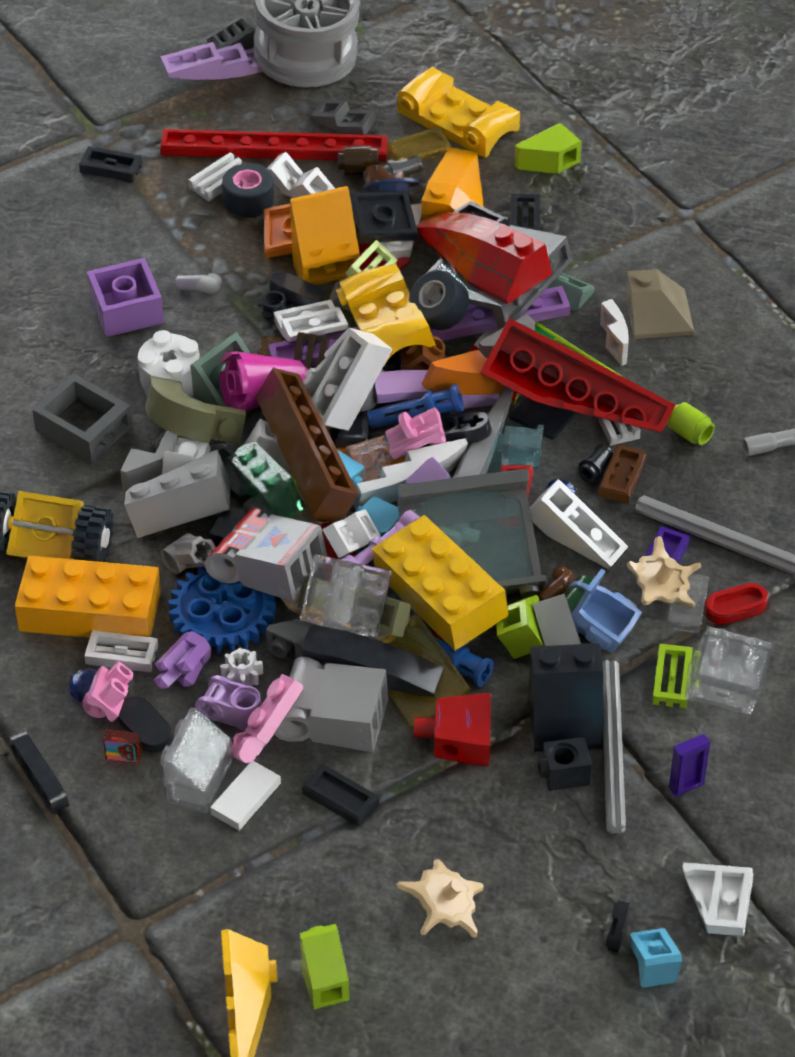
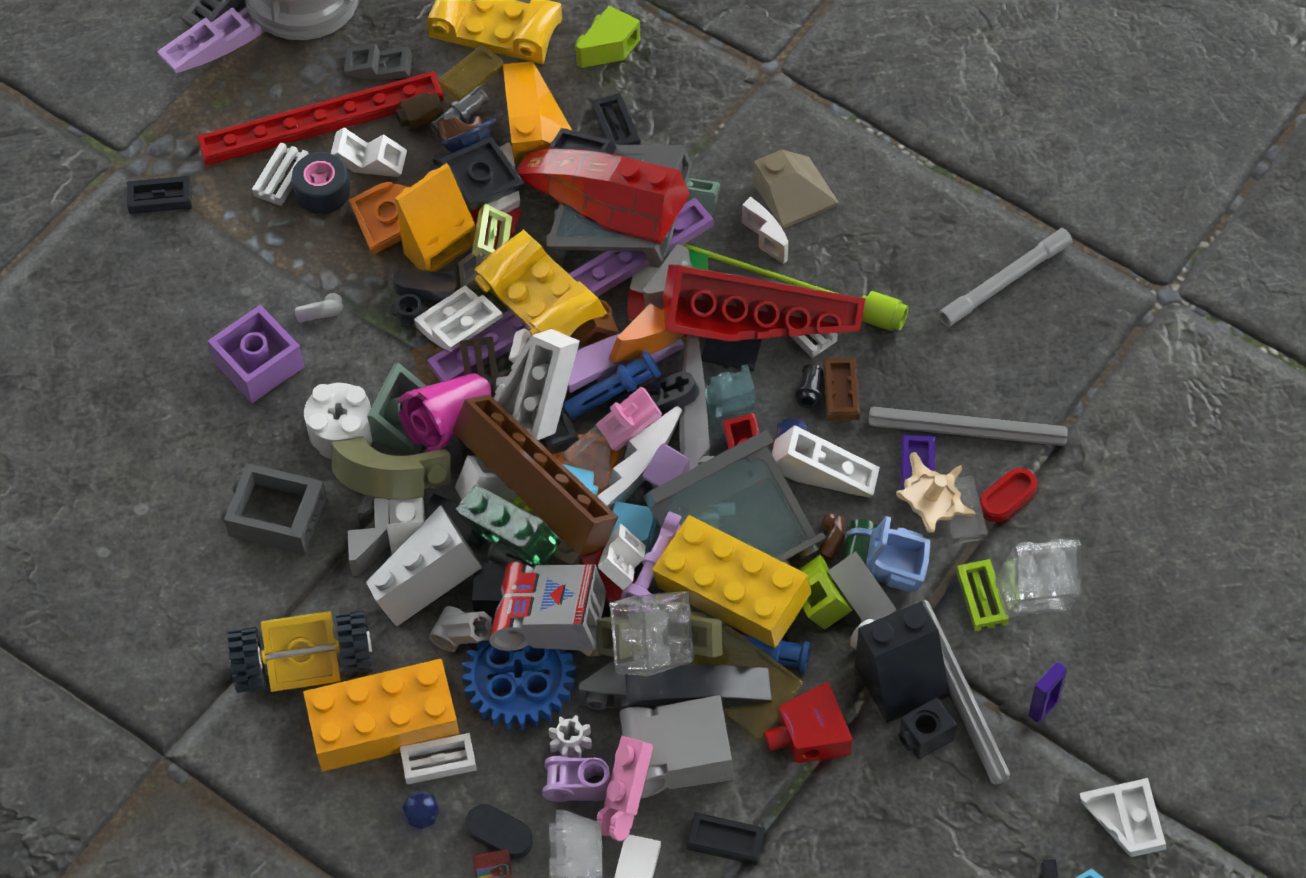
camera: 20 degrees left, 10 degrees up
(108, 692) = (452, 813): bright pink hips -> none
(183, 661) = (508, 751): medium lavender rock -> none
(440, 299) = (573, 256): black wheel -> none

